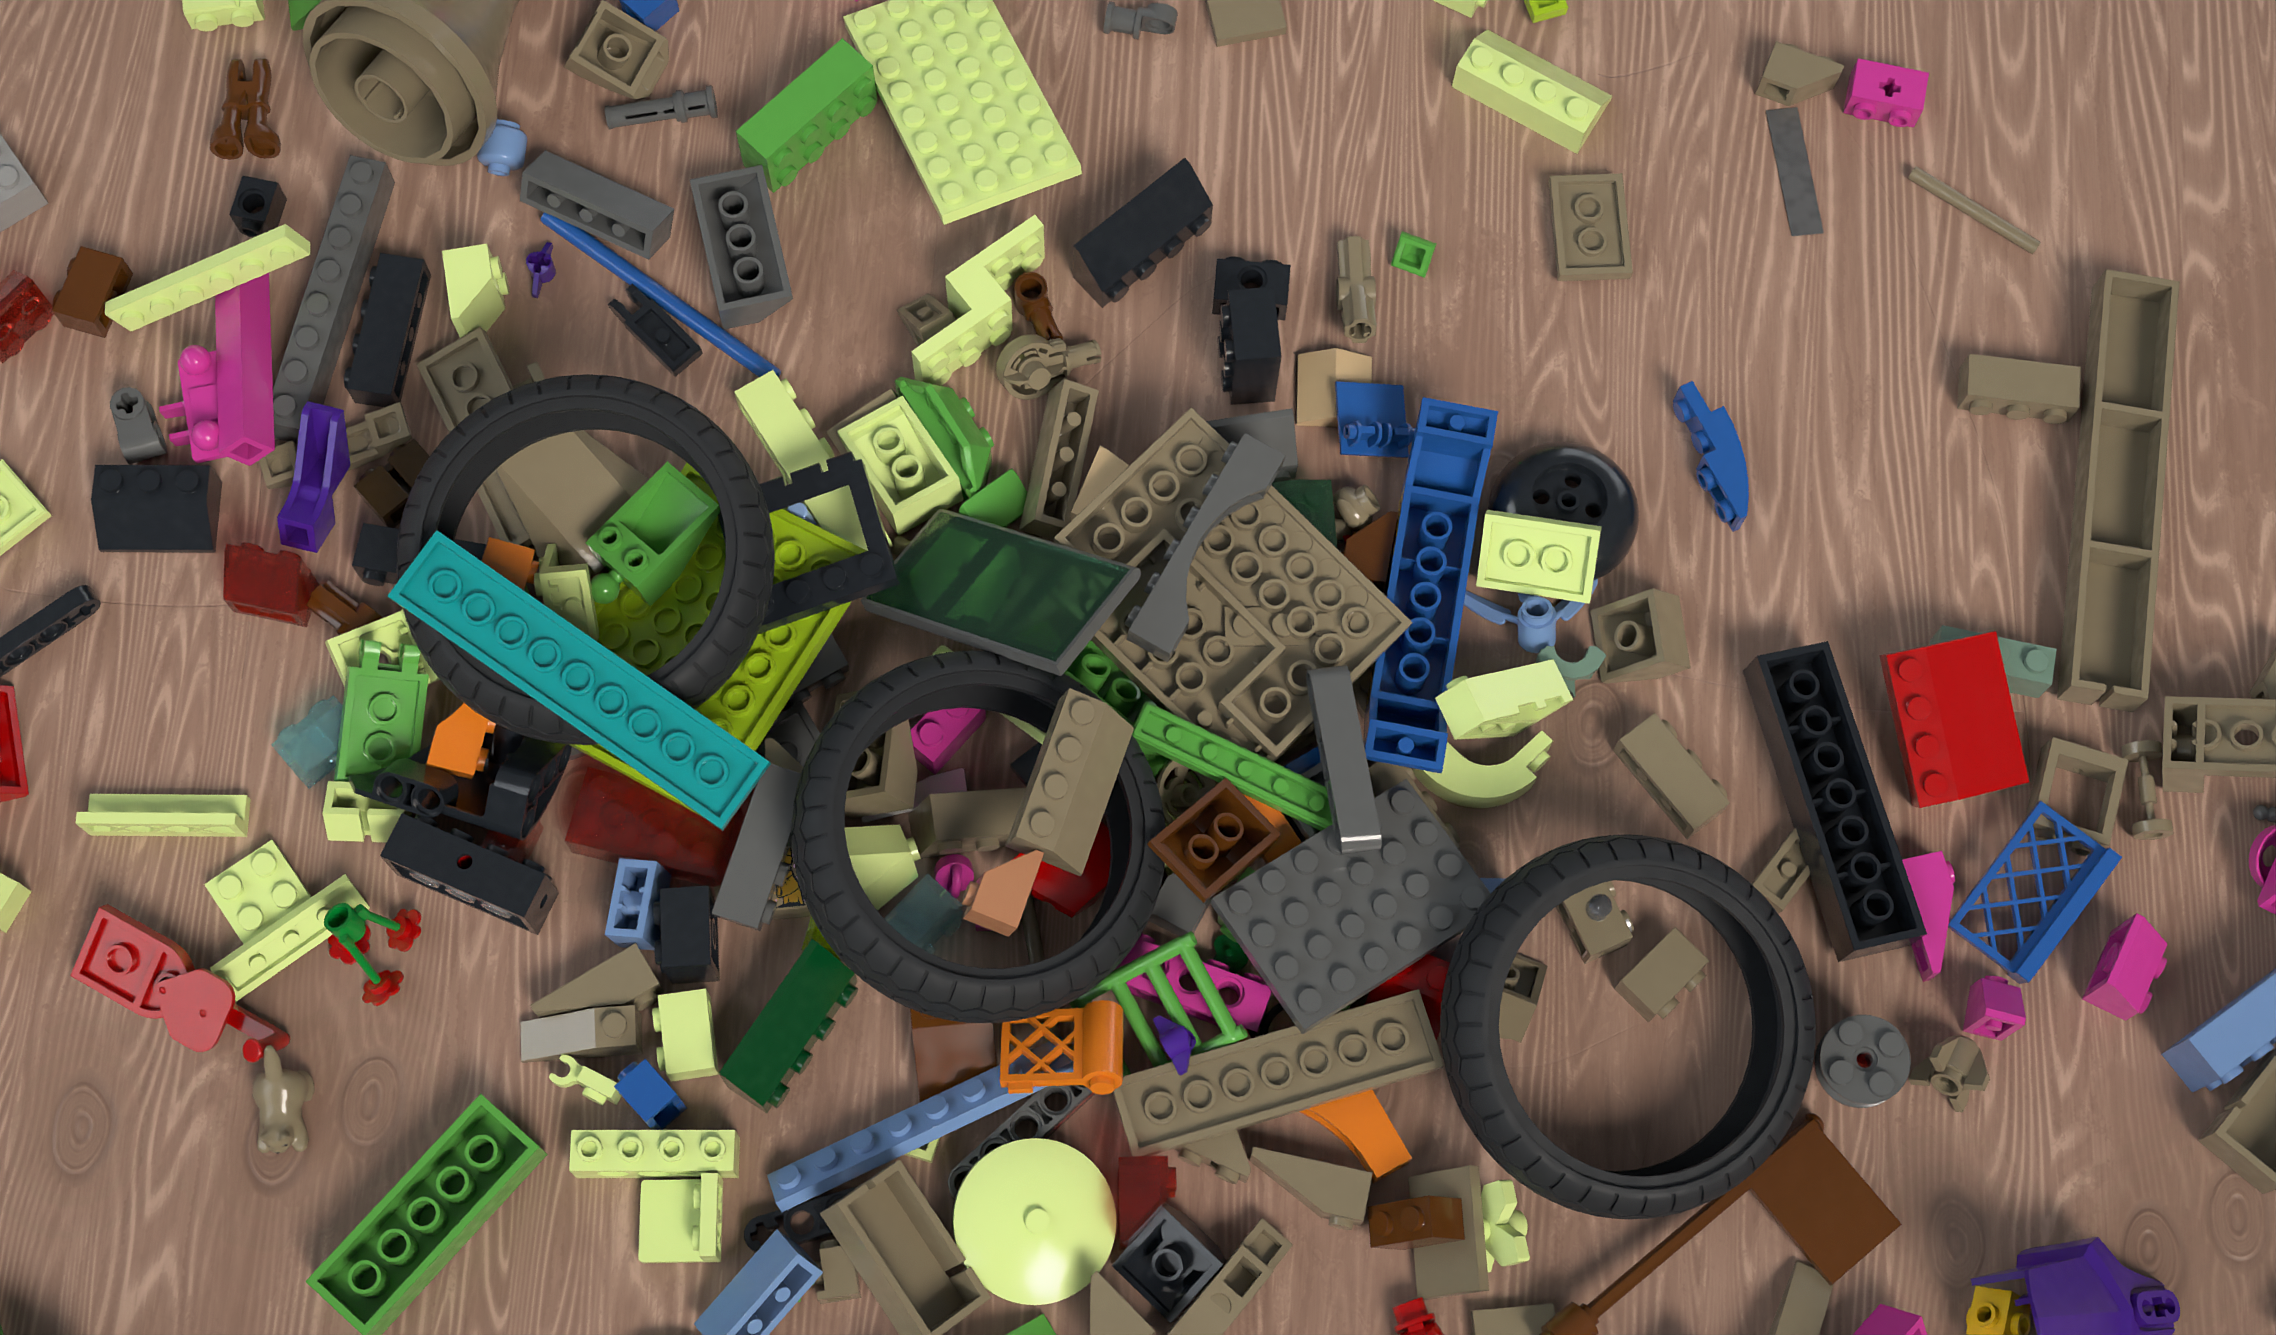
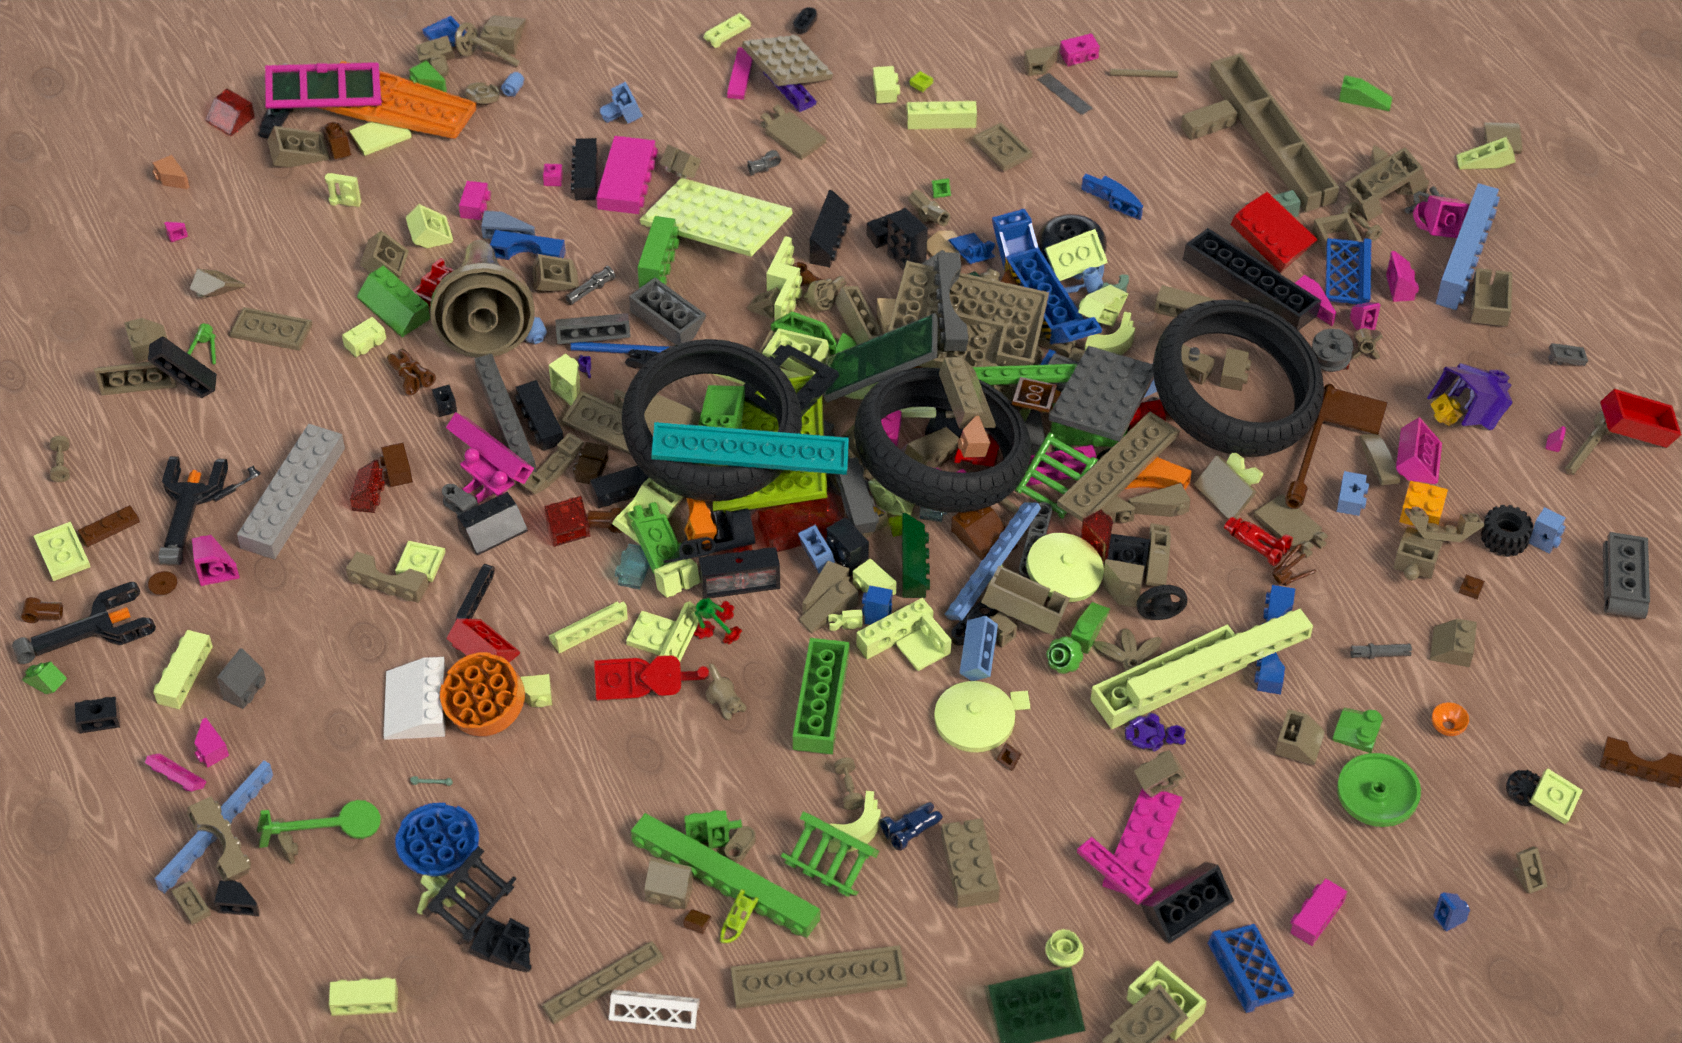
camera: 30 degrees left, 20 degrees down
(208, 278) = (452, 425): yellowish green plate -> none
(319, 469) = (555, 469): dark purple arch -> none
(1095, 1054) = (1039, 490): orange piece -> none
(1176, 1042) = (1071, 474): dark purple piece -> none
(1343, 760) = (1061, 344): dark grey beam -> none
(1416, 1222) = (1211, 488): reddish brown brick -> none
(1641, 637) = (1136, 264): dark tan slope -> none

